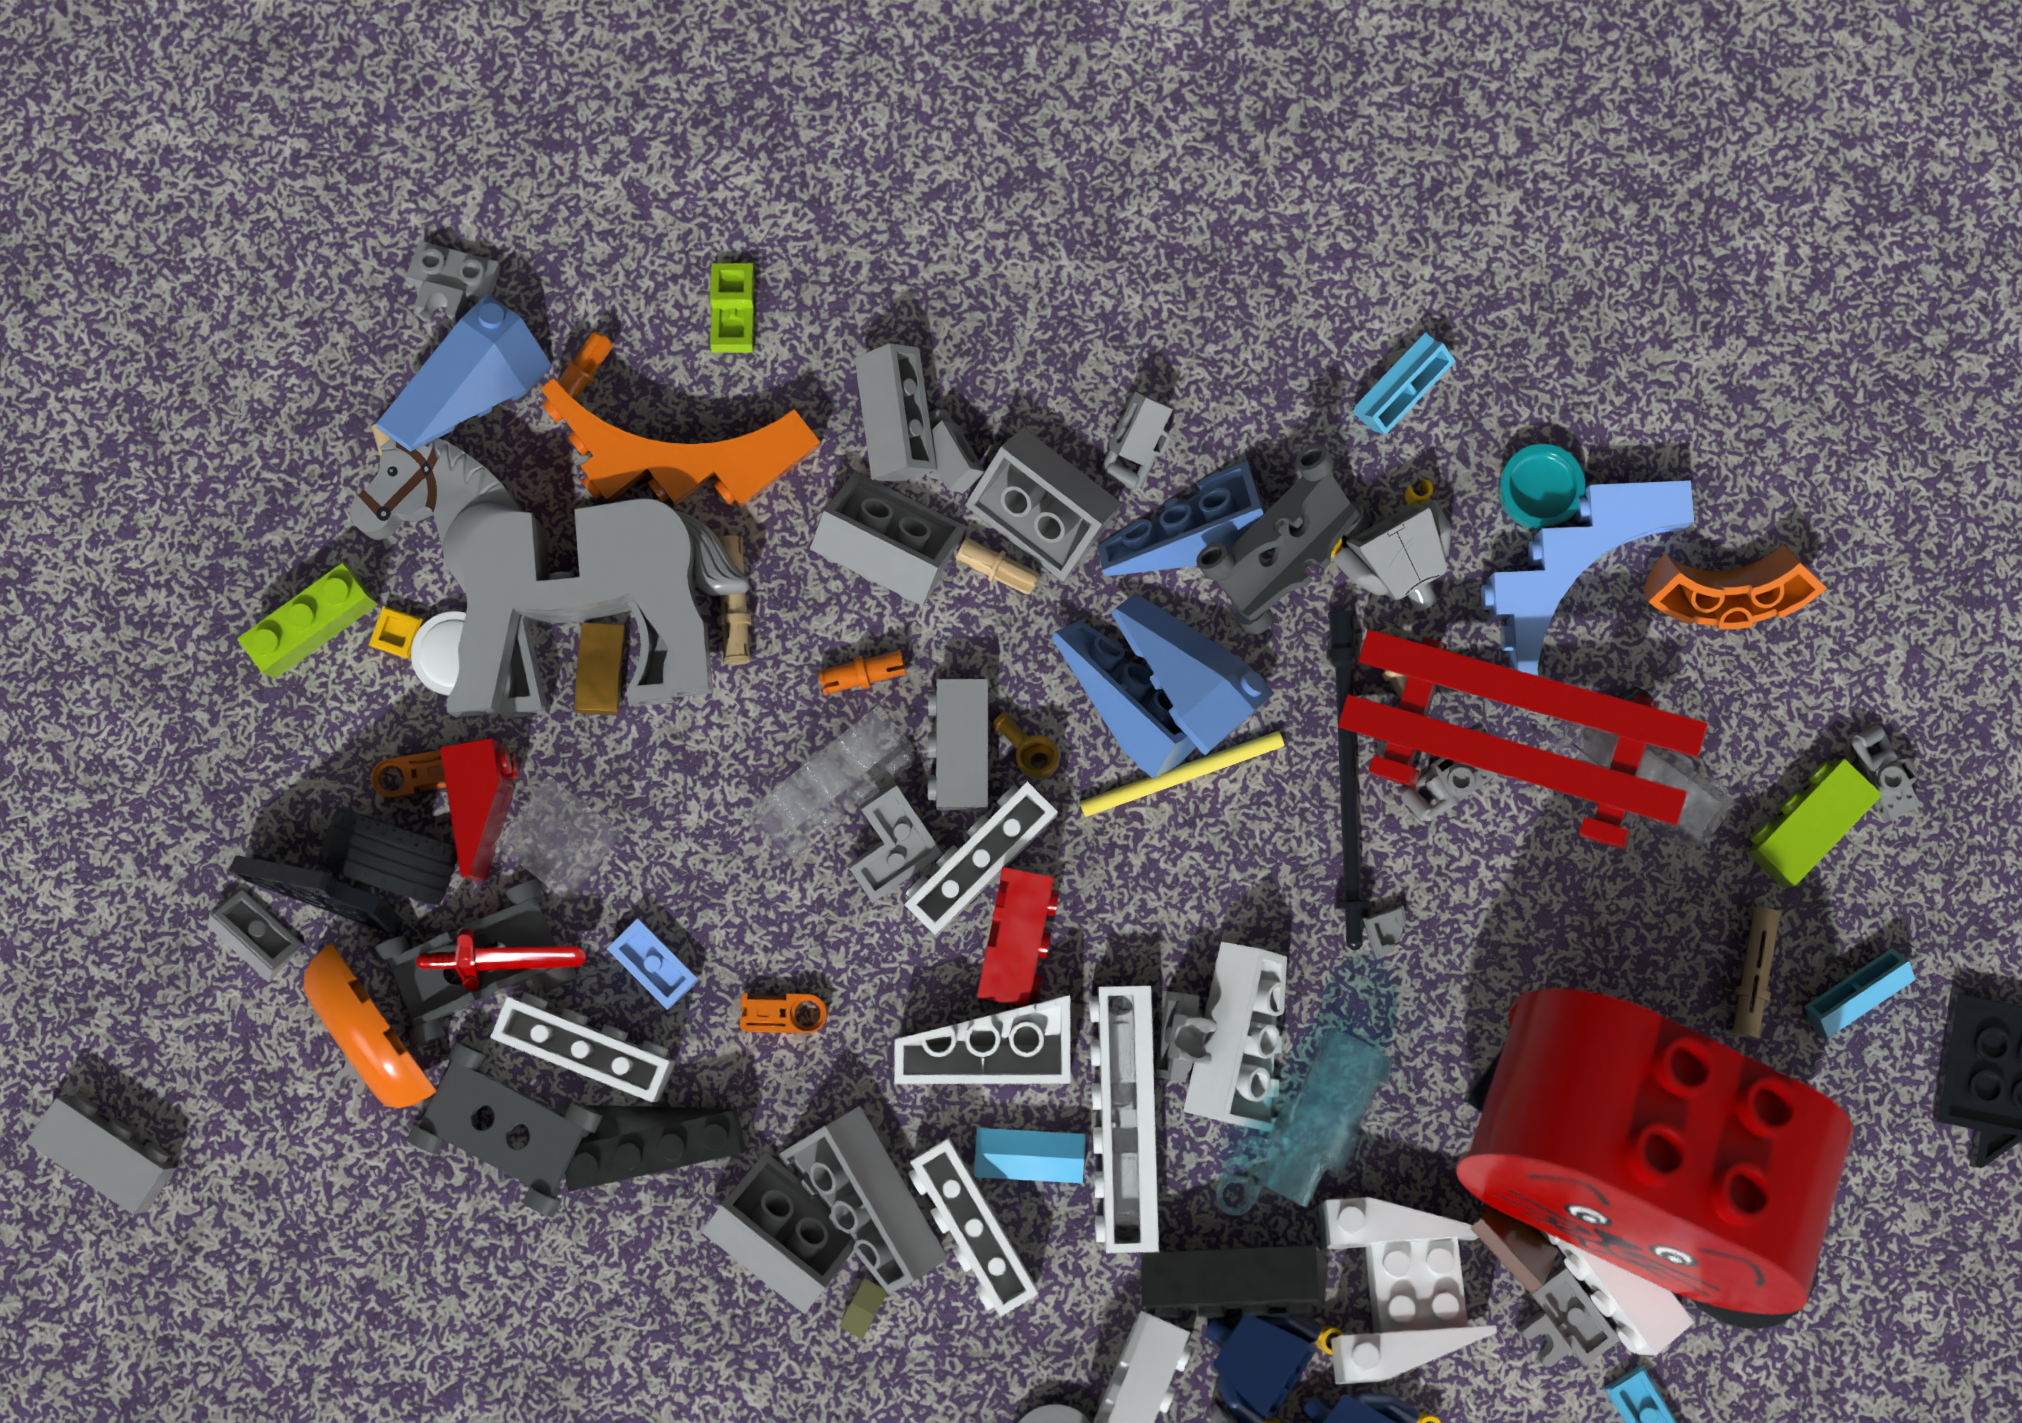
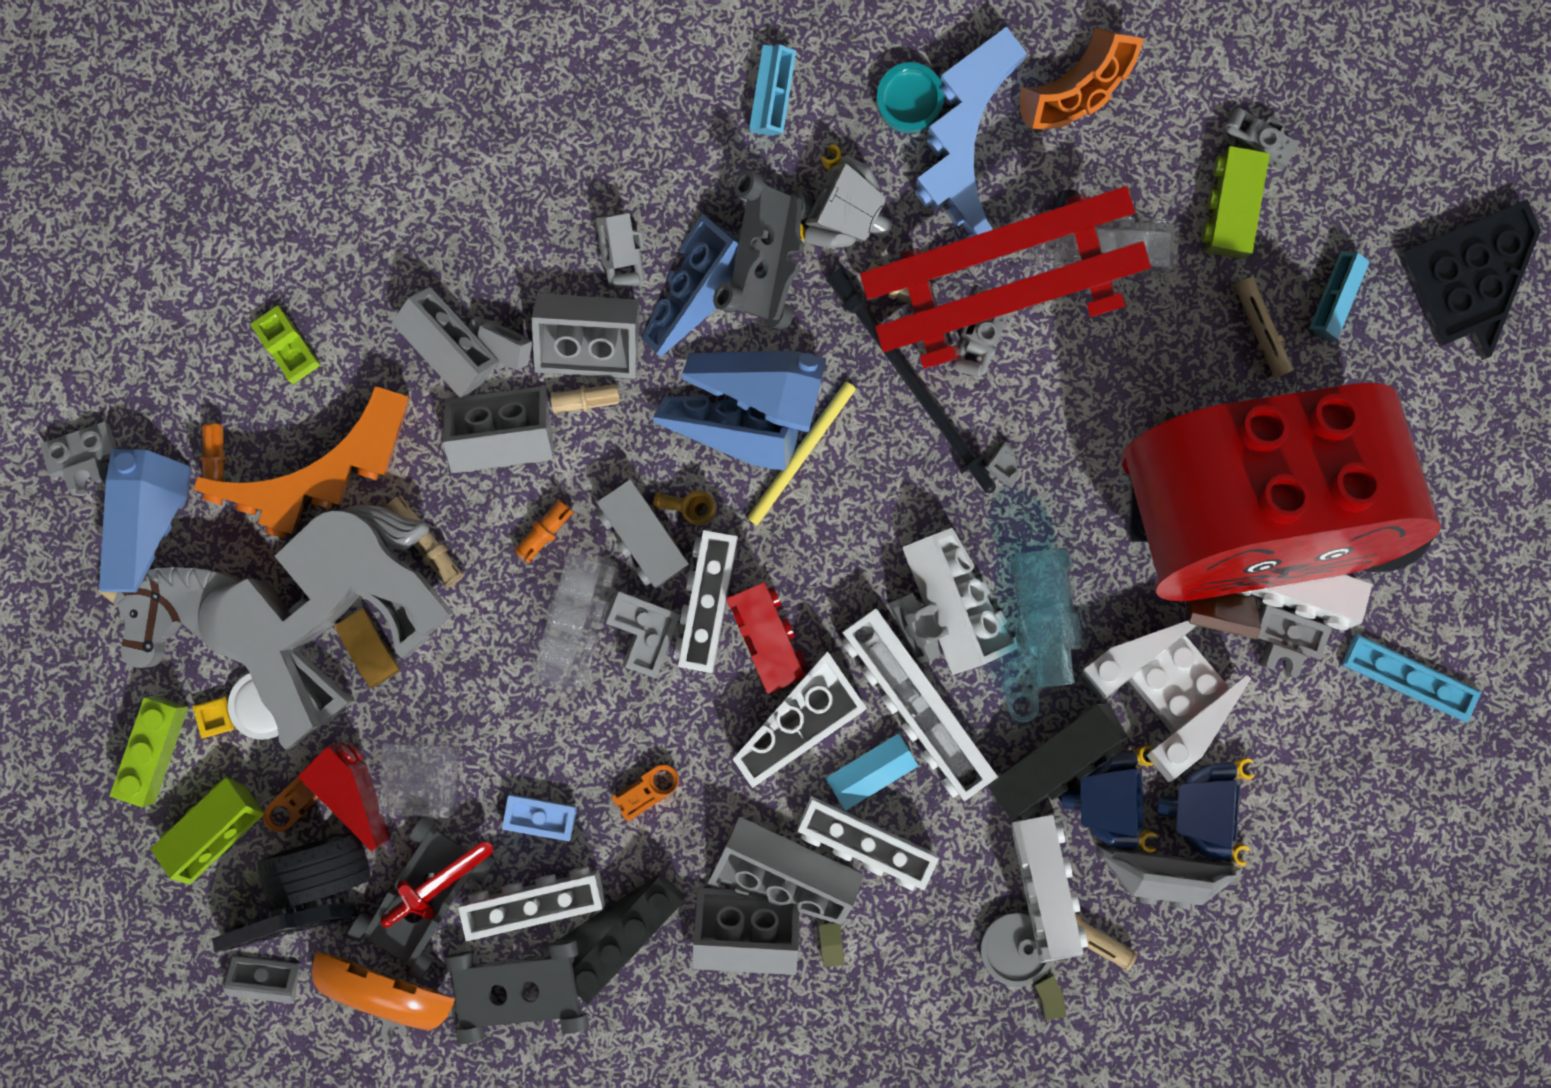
camera: 35 degrees left, 5 degrees up
(308, 742) = (207, 831): none -> lime brick

